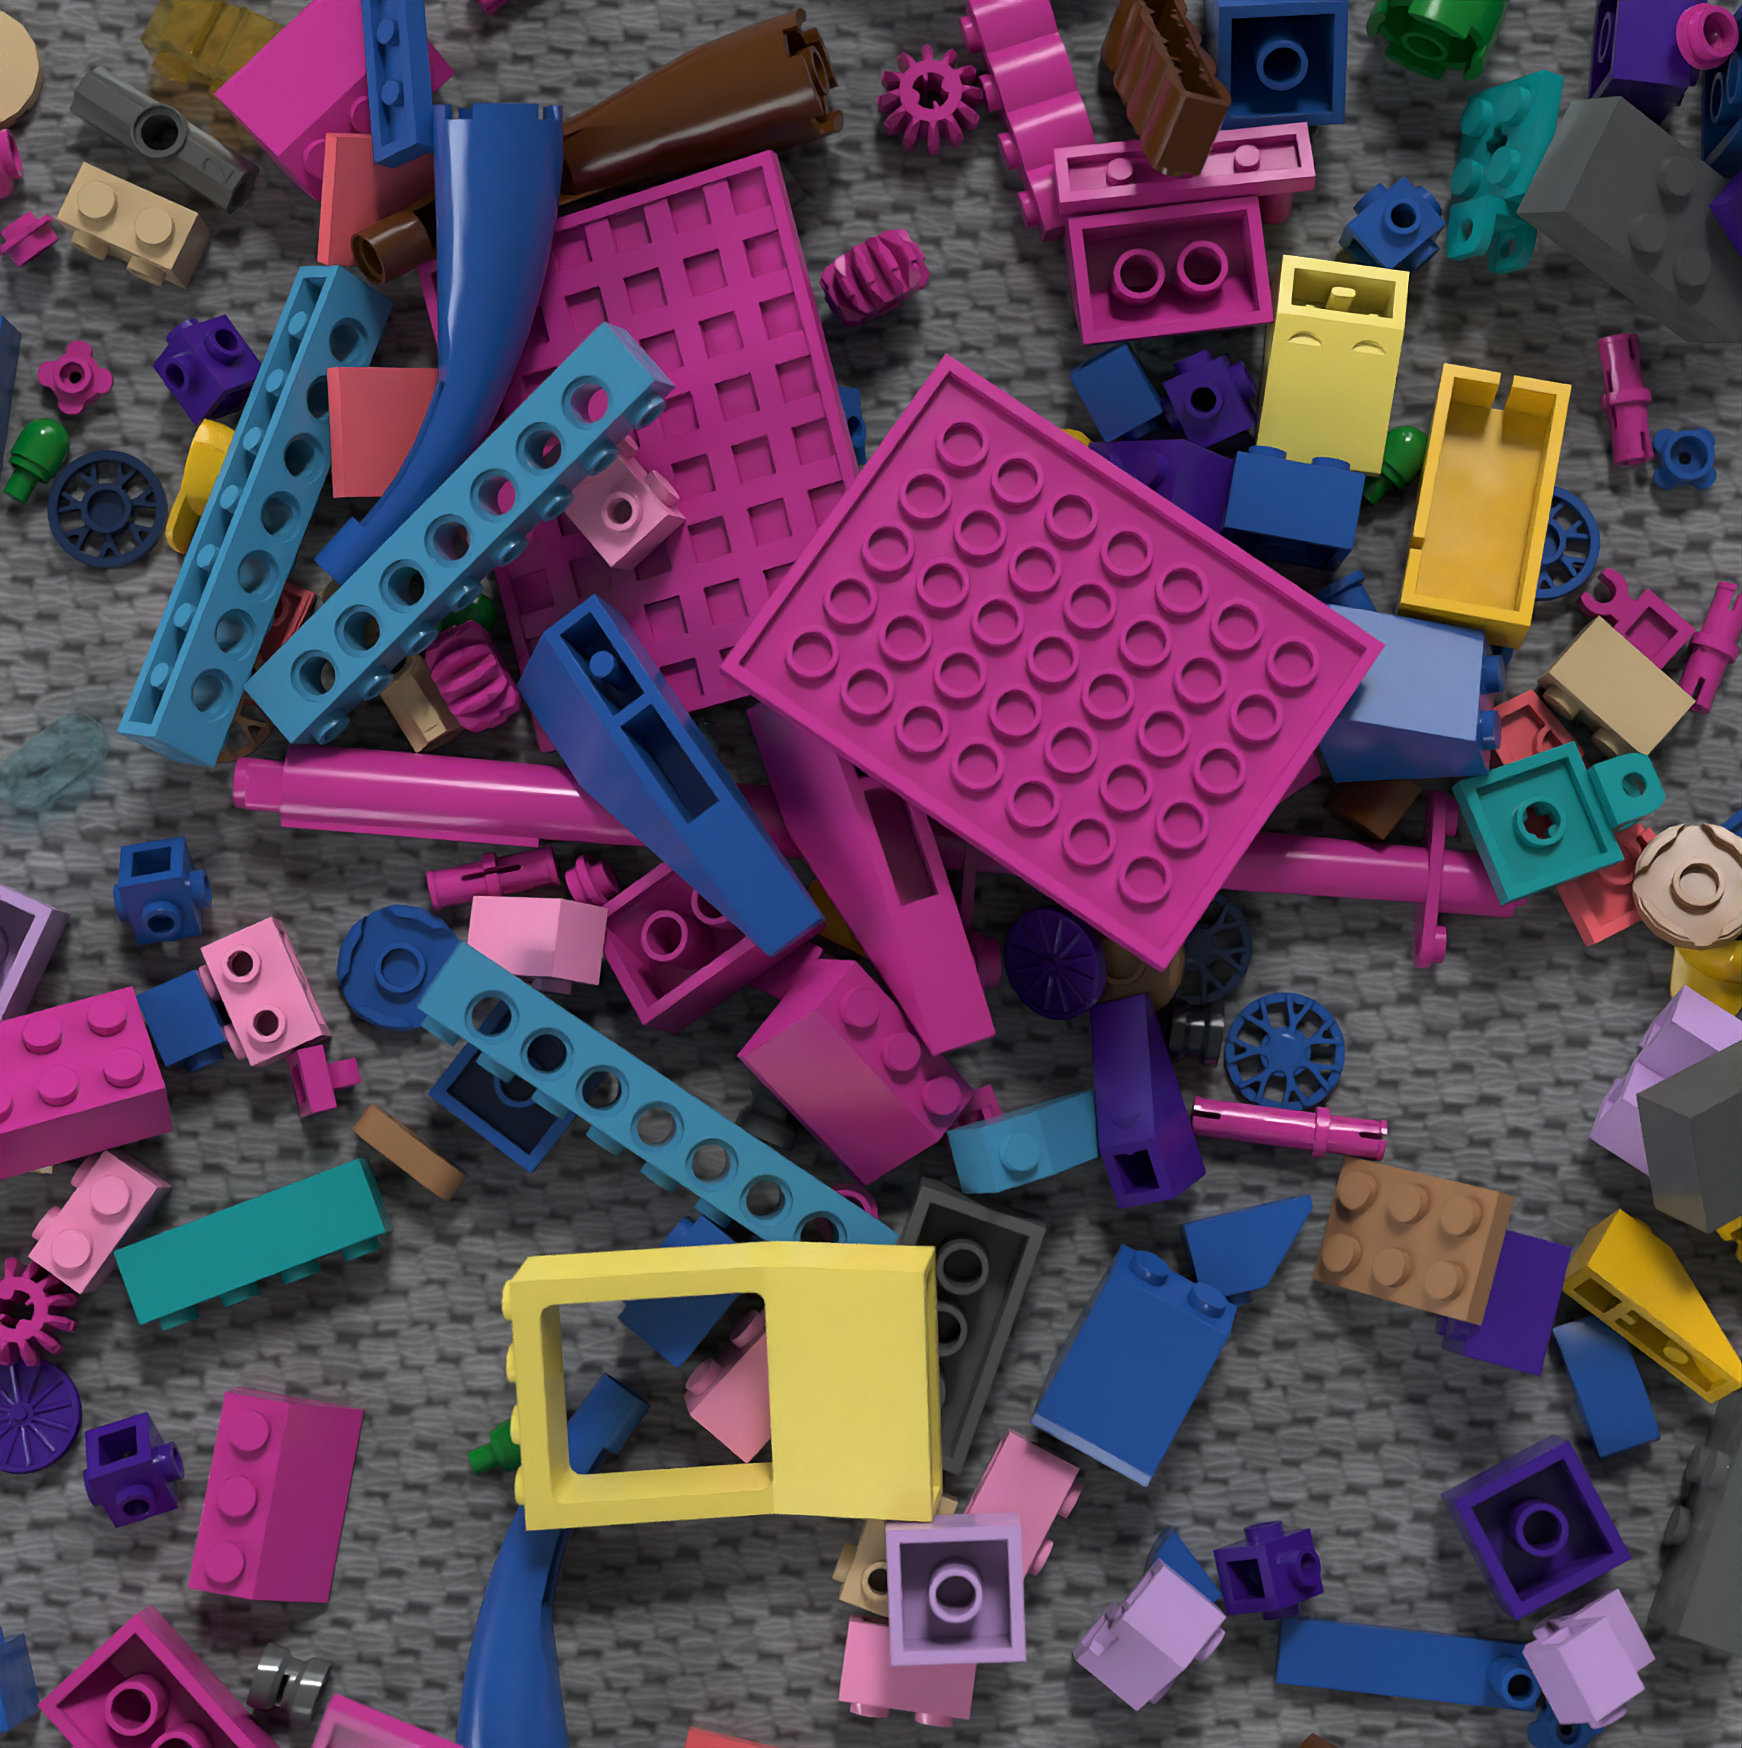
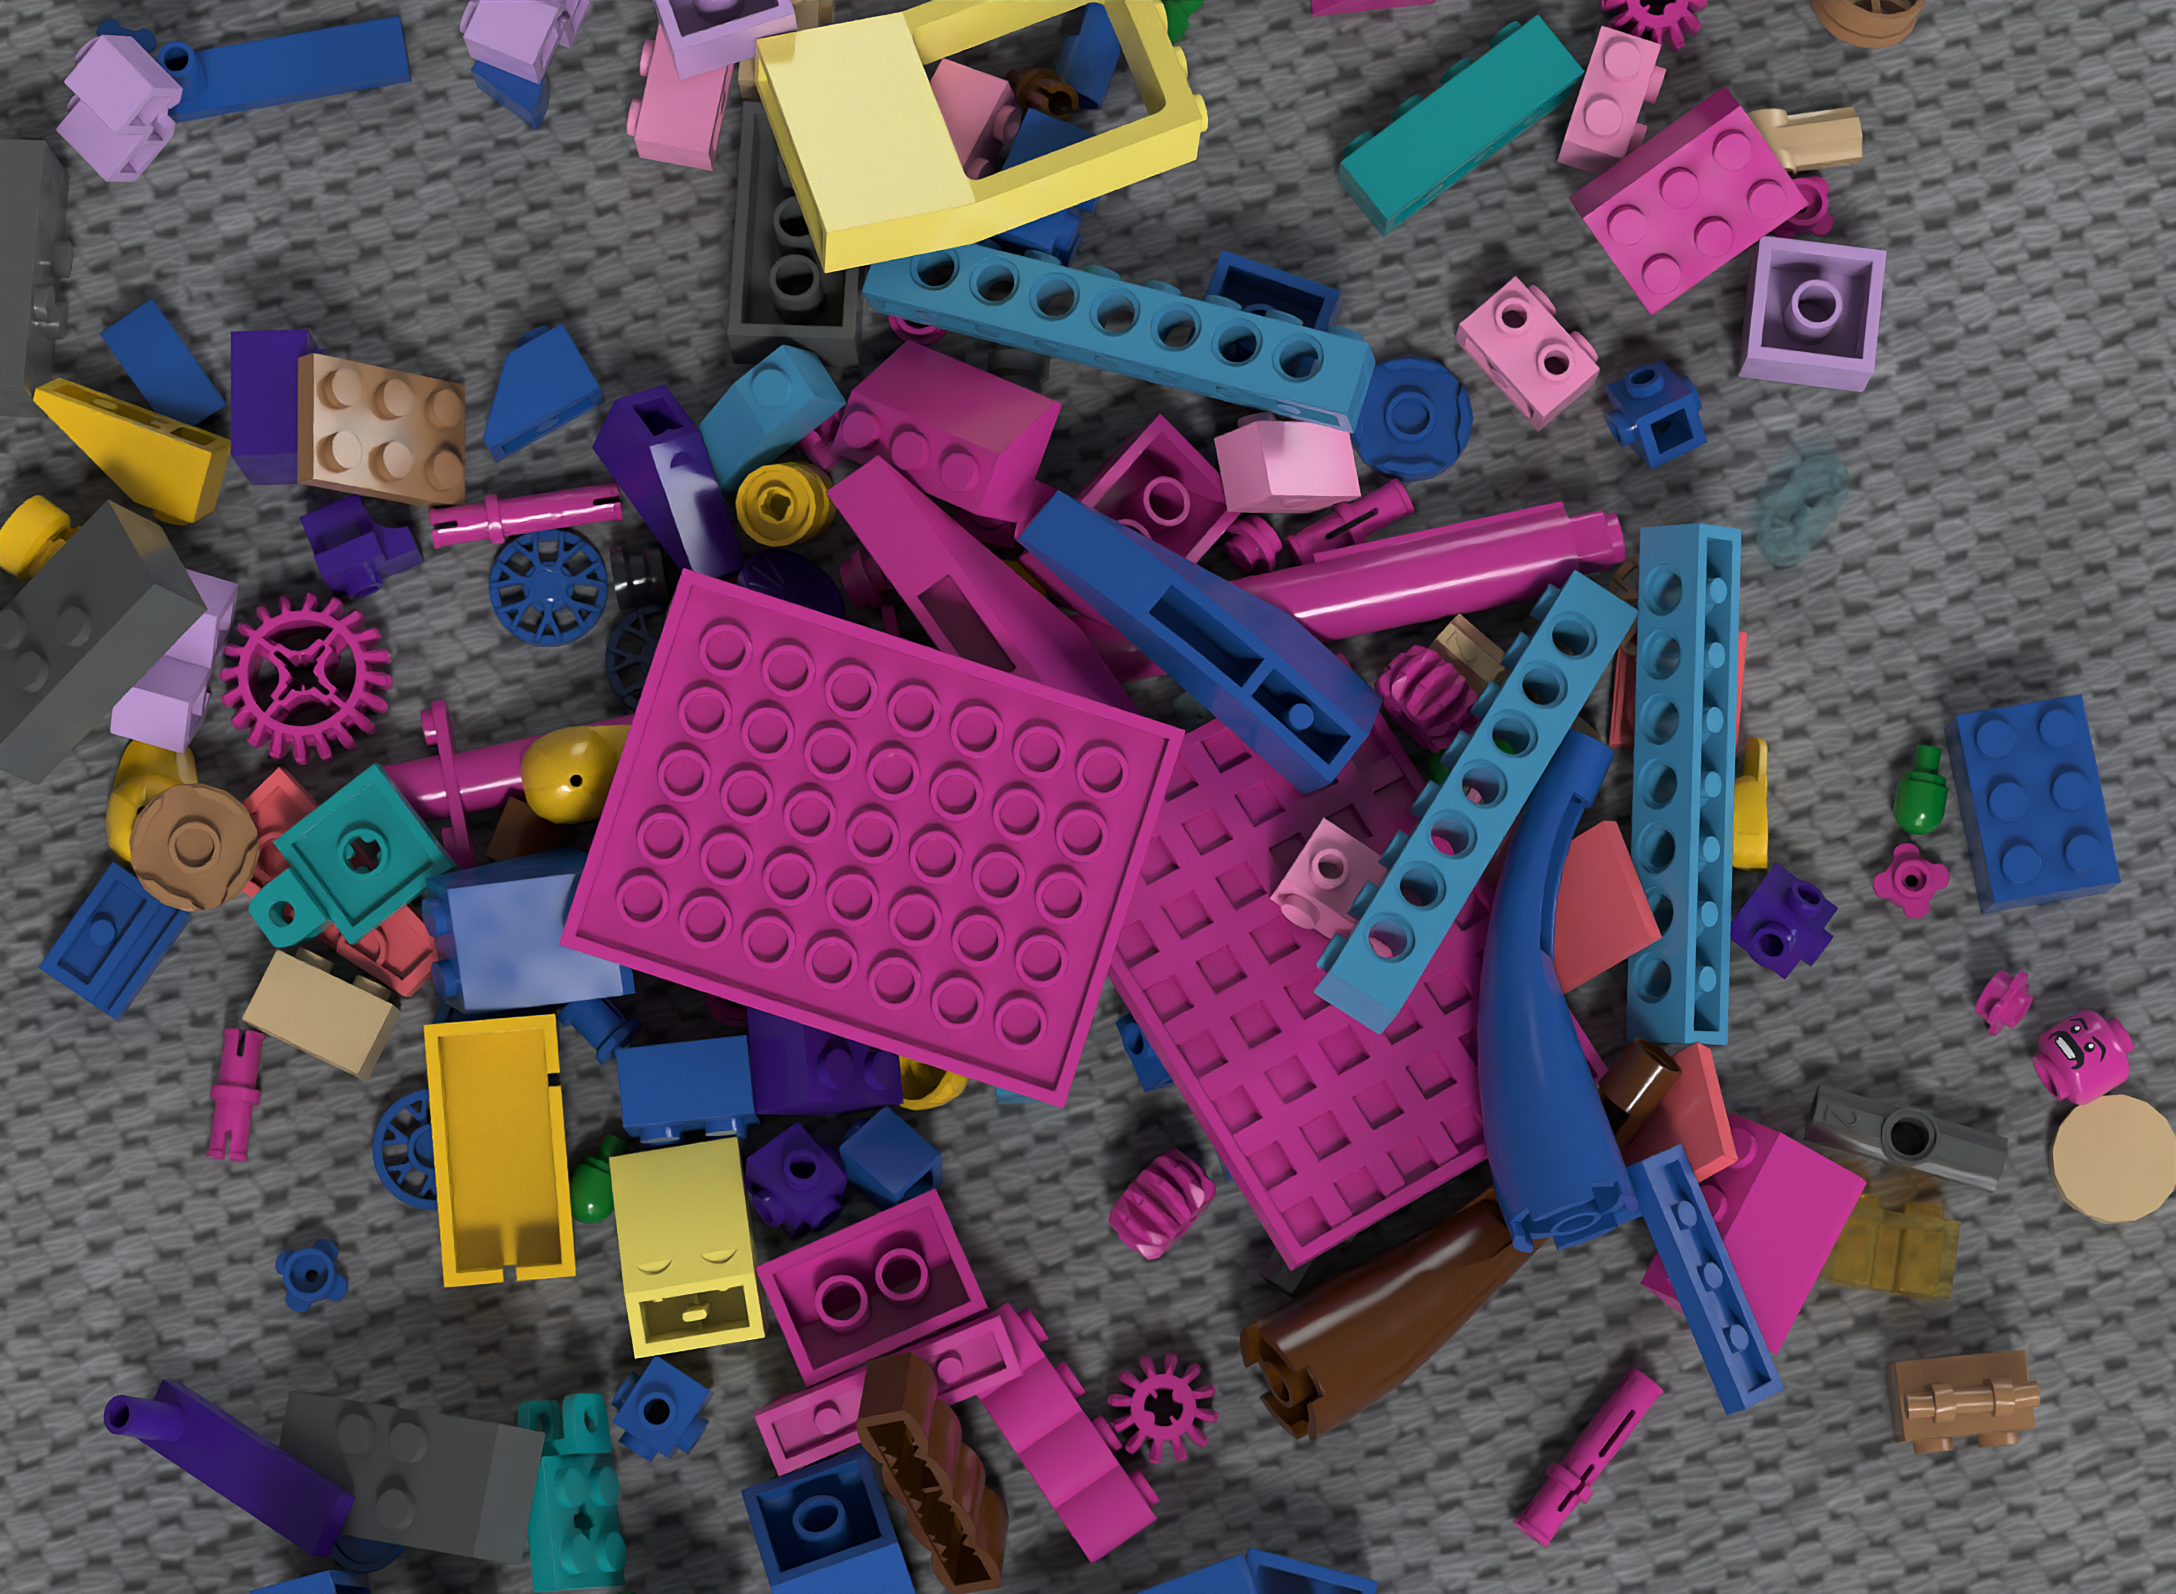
camera: 165 degrees right, 5 degrees down
(107, 509) = (1836, 765): dark blue wheel -> none
(133, 225) = (1904, 1040): tan brick -> none
(185, 1023) = (1593, 303): blue brick -> none
(316, 1080) = (1452, 289): dark pink tile -> none
(410, 1152) = (1344, 250): medium nougat beam -> none
(659, 1395) = (1043, 92): none -> reddish brown axle
(1033, 1053) = (785, 503): none -> yellow wheel
(1133, 1363) = (611, 242): blue slope -> none
(1269, 1571) = (434, 105): dark purple brick -> none
(1308, 854) = (566, 752): none -> yellow cap
(1465, 1141) = (356, 550): none -> dark purple brick
(1535, 1526) = (197, 215): dark purple brick -> none
(1565, 1050) = (288, 701): none -> dark pink gear
(1625, 399) = (385, 1316): dark pink pin -> none
(1643, 622) = (311, 1090): dark pink plate -> none

